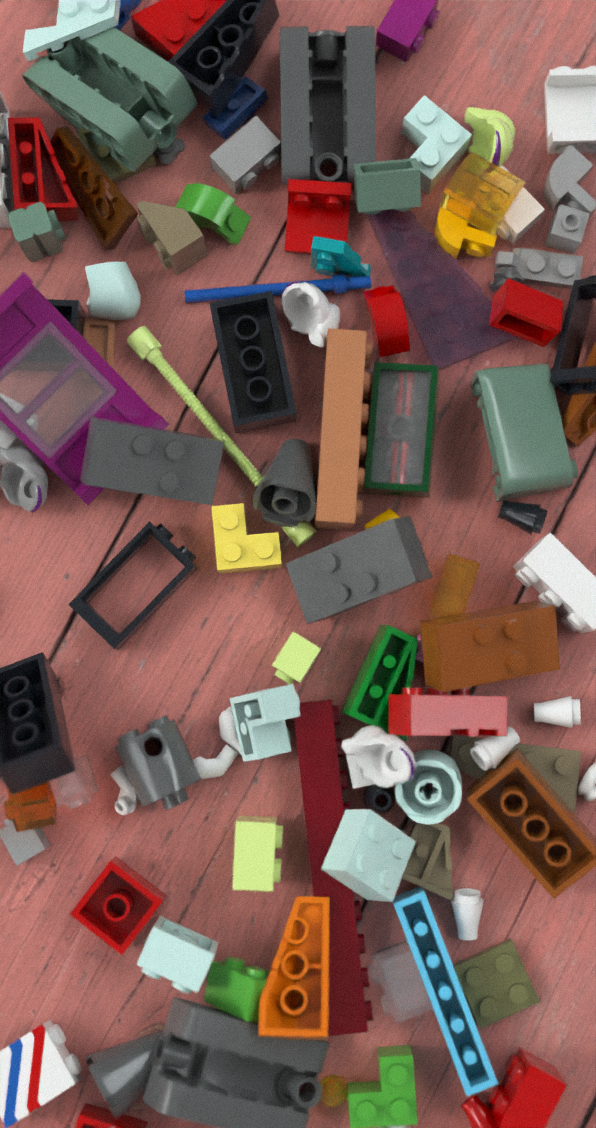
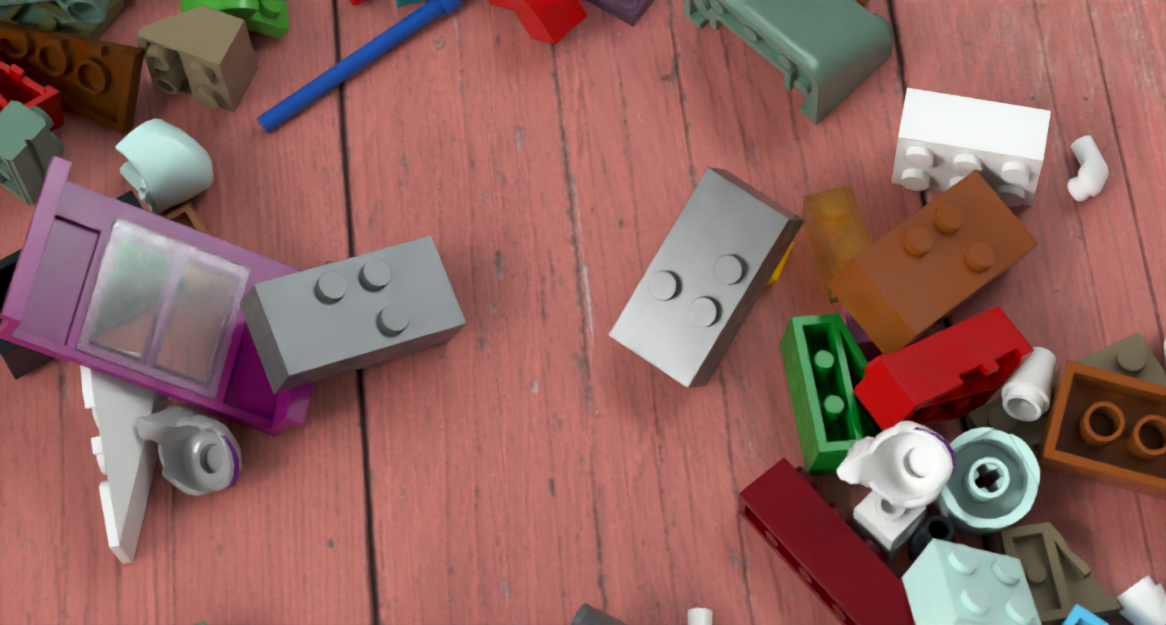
camera: 30 degrees left, 20 degrees down
(81, 602) = (417, 564): black window -> none
(148, 347) = (591, 295): yellowish green hose -> none
(228, 729) = (679, 590): white arm -> none
(238, 550) = (539, 361): light yellow brick -> none
(253, 362) = (403, 139): black brick -> none
(262, 723) = (709, 539): light aqua brick -> none
(288, 486) = (551, 246): dark grey cone -> none
(295, 659) = (704, 436): yellowish green brick -> none
(309, 311) = (430, 44): white hair -> none
(341, 429) = (569, 145): nougat brick -> none
(401, 429) = (642, 104): clear brick -> none
(524, 515) = (861, 113): black cone -> none
(559, 712) = (1077, 303): white cone -> none

